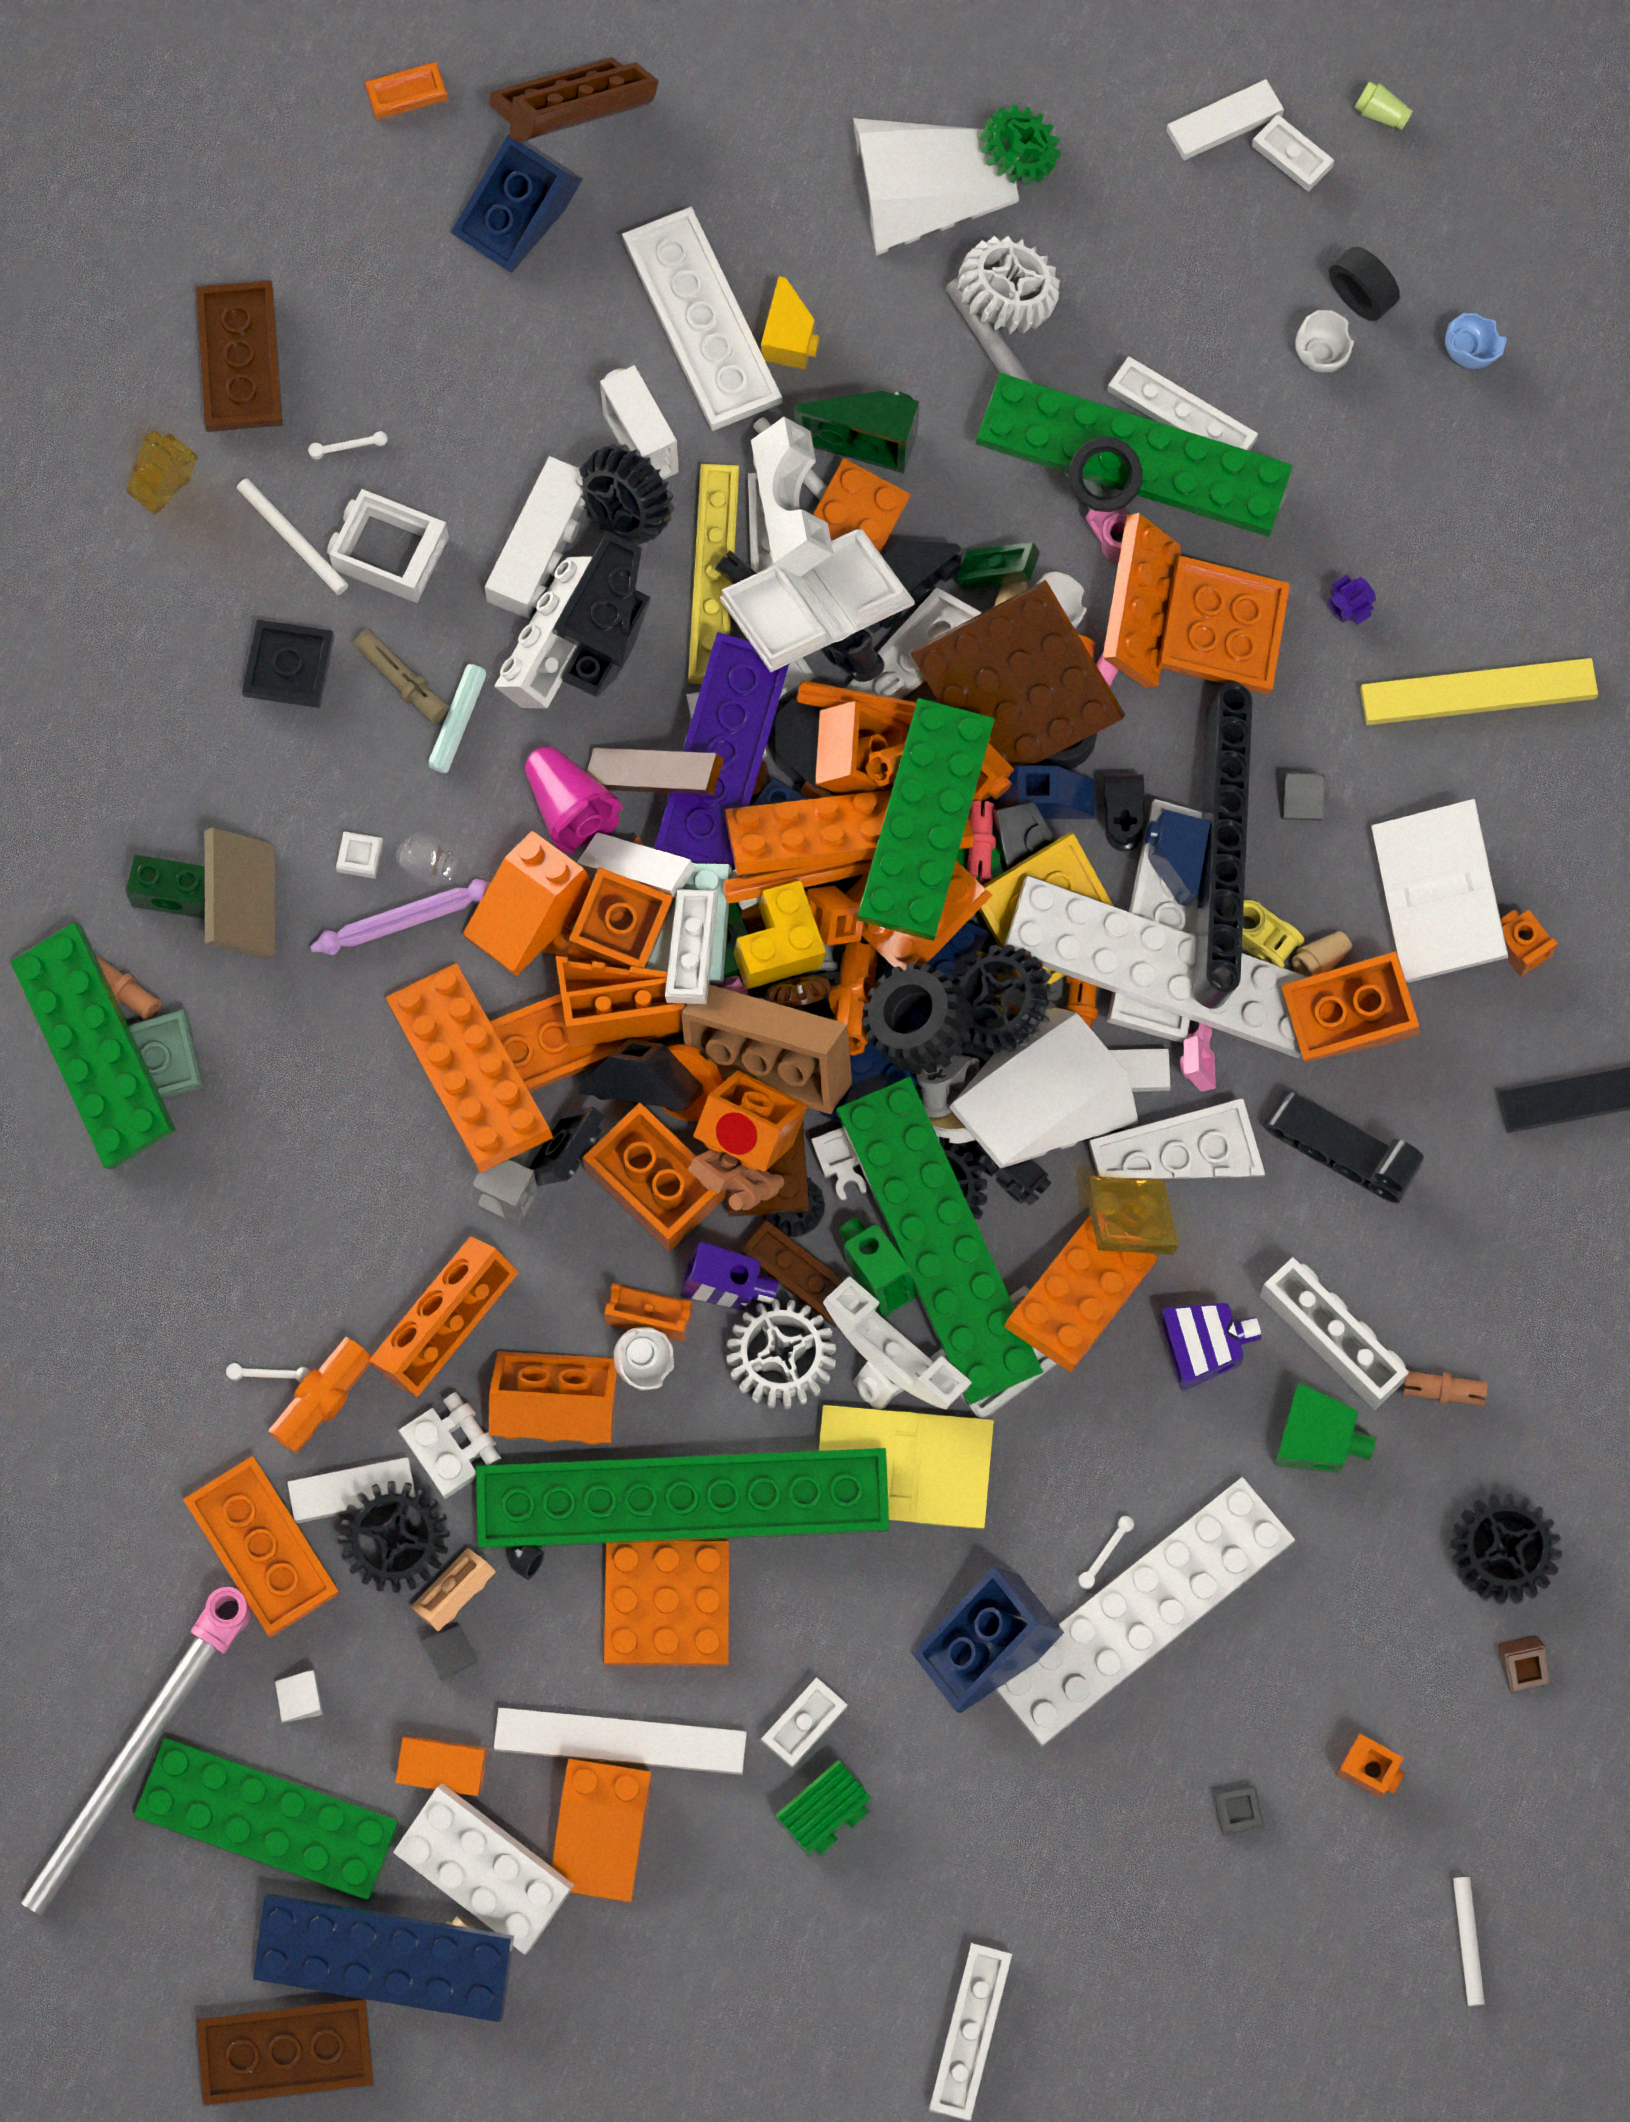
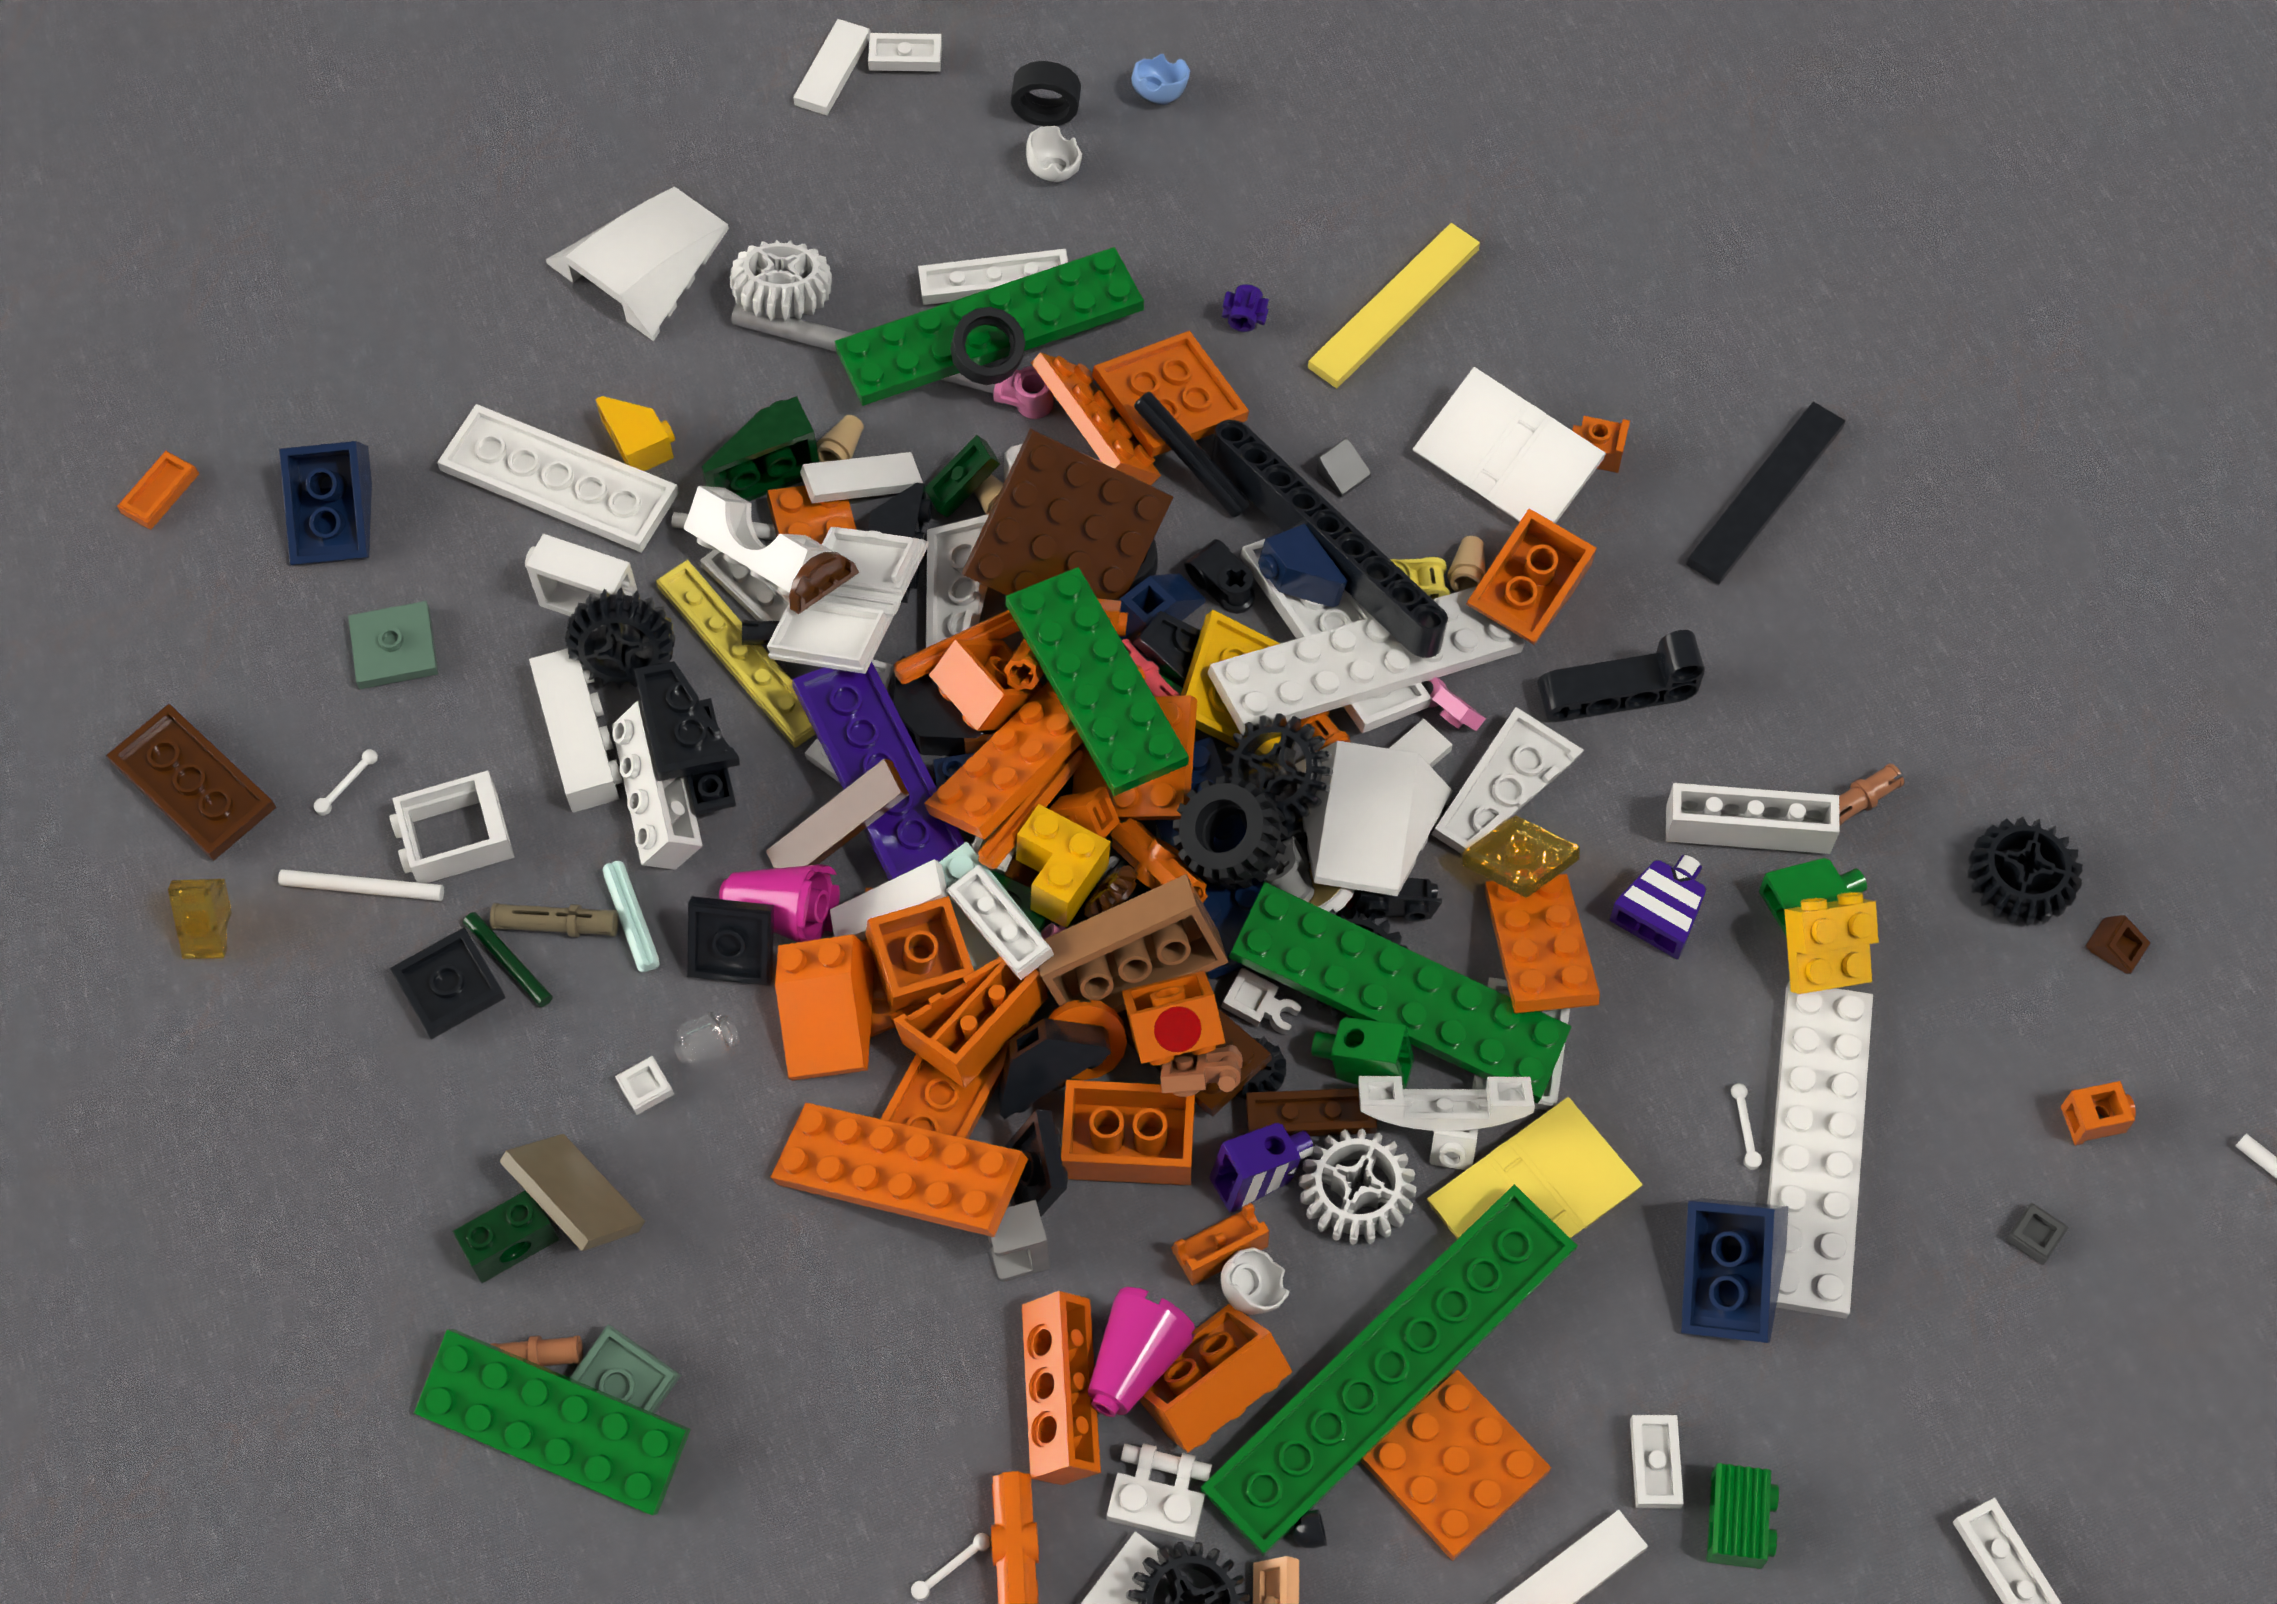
camera: 40 degrees left, 10 degrees down
(345, 678) = (507, 959): none -> dark green bar
(400, 918) = (726, 1105): lavender wheel -> none
(469, 360) = (393, 645): none -> sand green plate
(504, 797) = (730, 940): none -> black tile
(513, 1336) = (1136, 1349): none -> dark pink cone
(573, 97) = (310, 388): reddish brown brick -> none
(804, 567) = (819, 578): none -> reddish brown tile
(856, 656) = (914, 622): black piece -> none
(923, 504) = (860, 477): none -> white tile
(935, 460) = (840, 440): none -> tan cone
(1020, 144) = (696, 183): green gear -> none
(1187, 691) = (1191, 454): none -> black axle
(1292, 1475) = (1830, 942): none -> yellow plate

